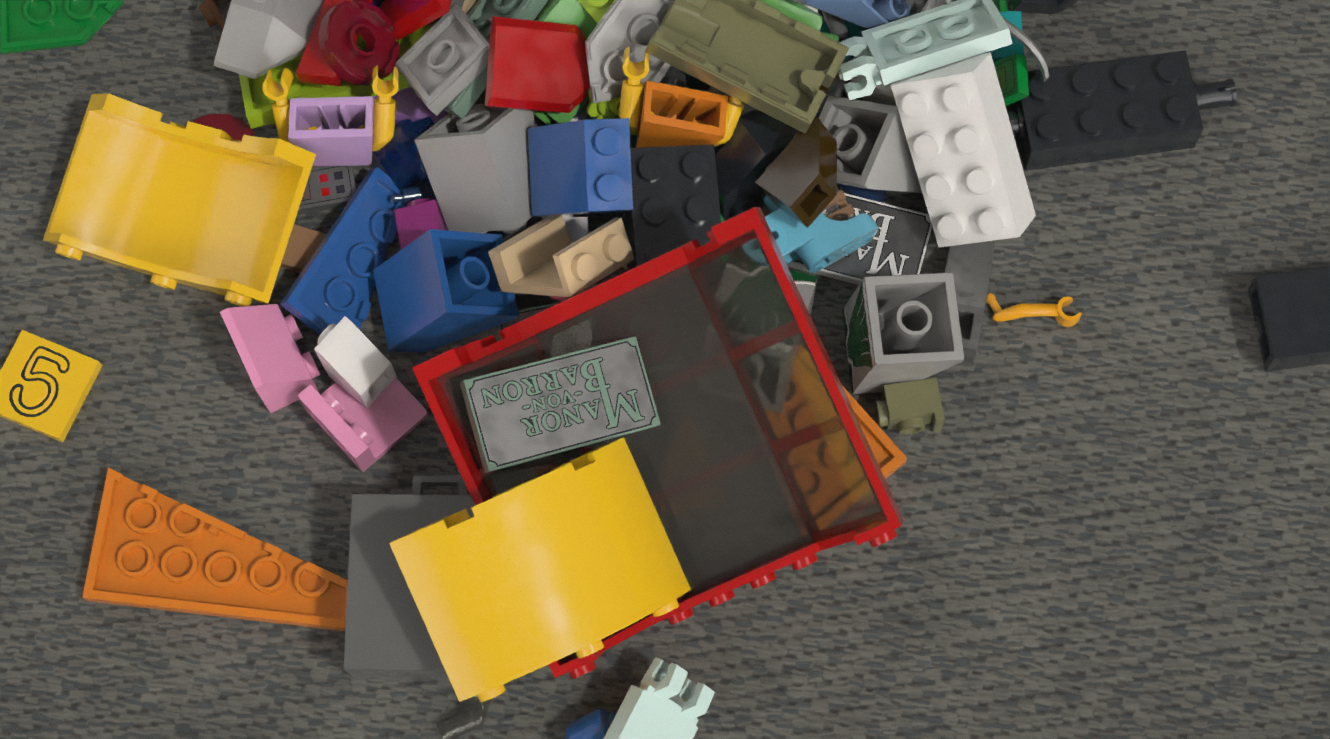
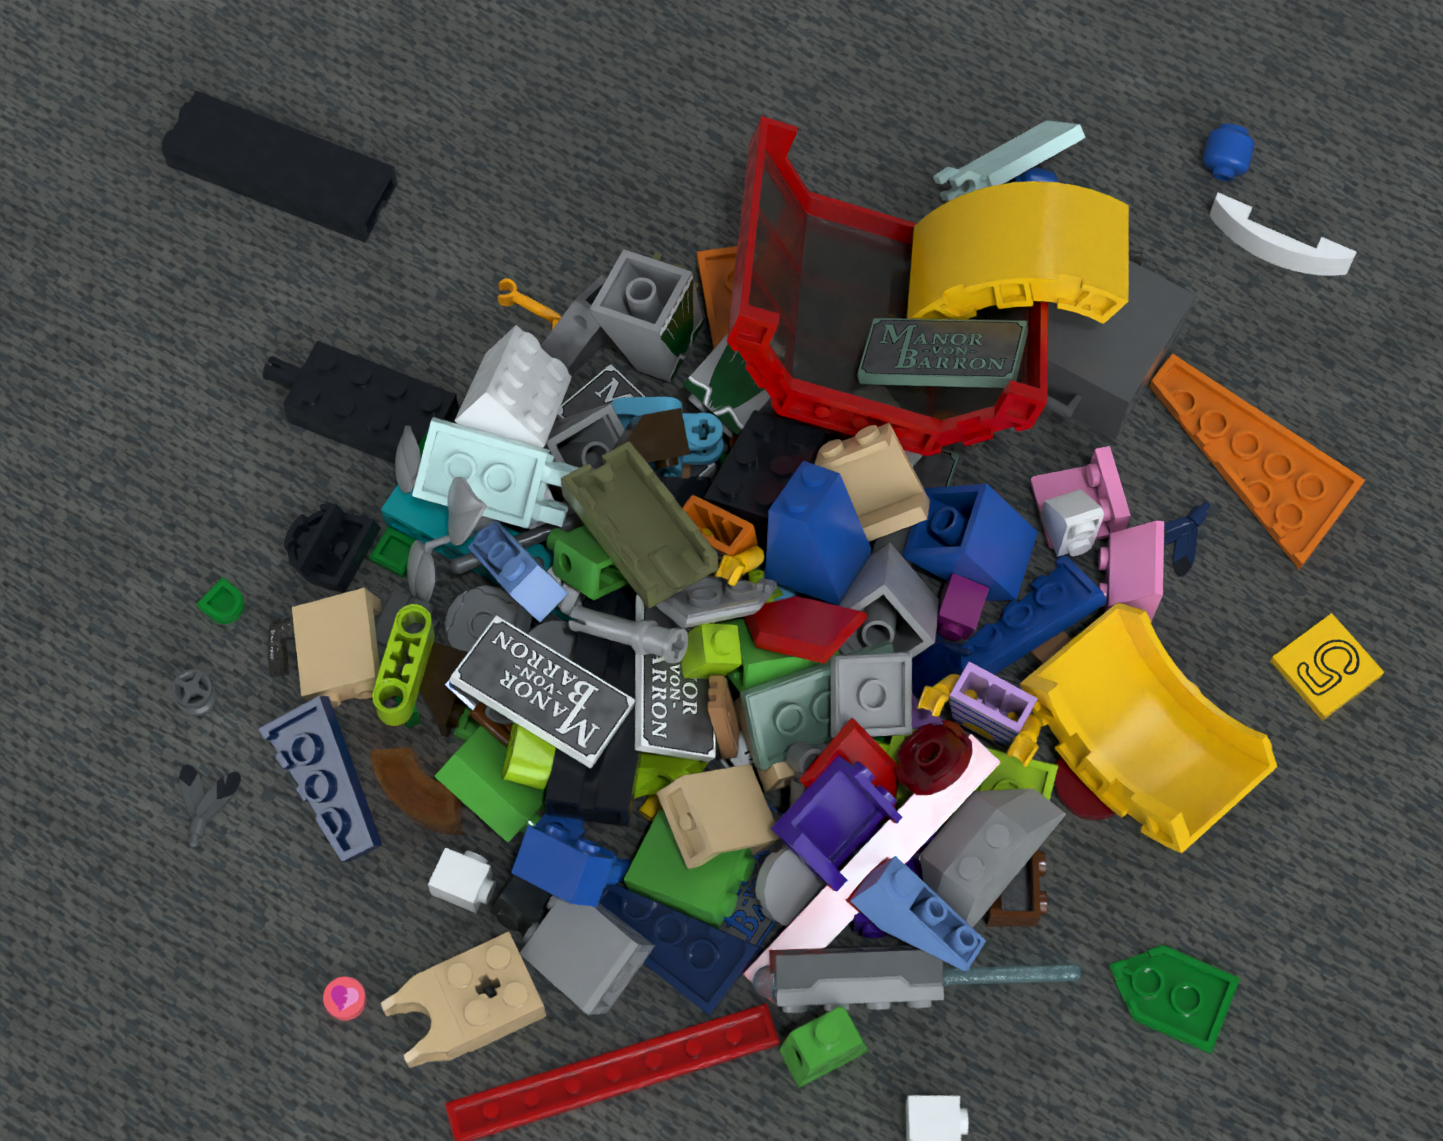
camera: 155 degrees left, 5 degrees down
(249, 447) = (1185, 533): none -> dark blue piece

